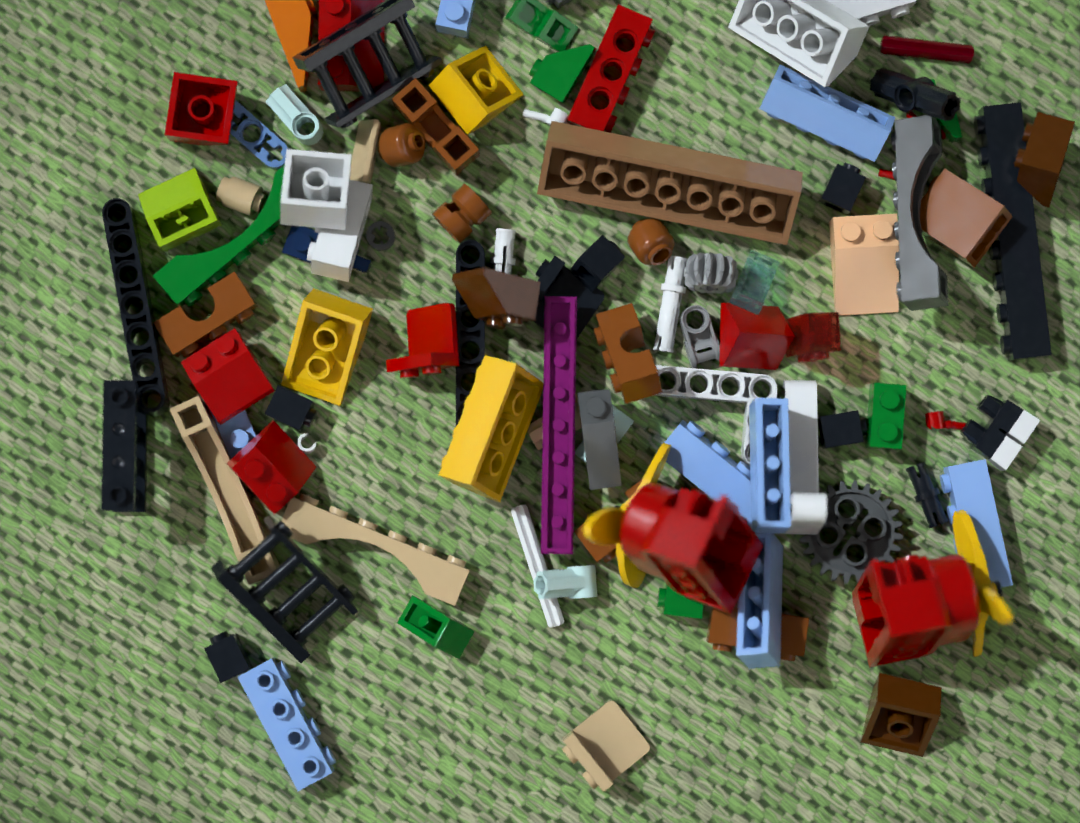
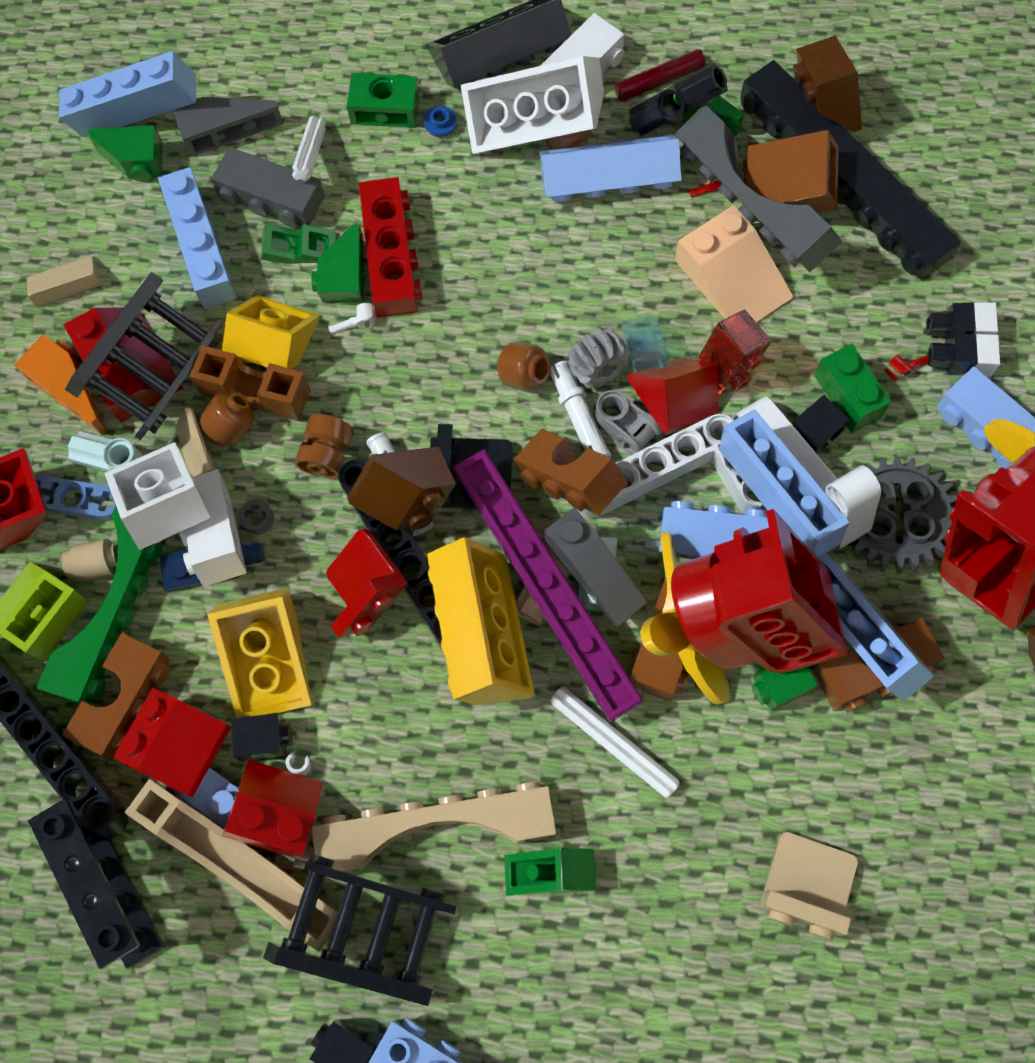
camera: 25 degrees left, 15 degrees down
(570, 582) = (658, 735): light aqua piece -> none
(597, 263) = (484, 414): black brick -> none
(670, 183) = (506, 300): medium nougat brick -> none
(842, 188) = (667, 220): black brick -> none
(927, 495) = (941, 437): black pin -> none

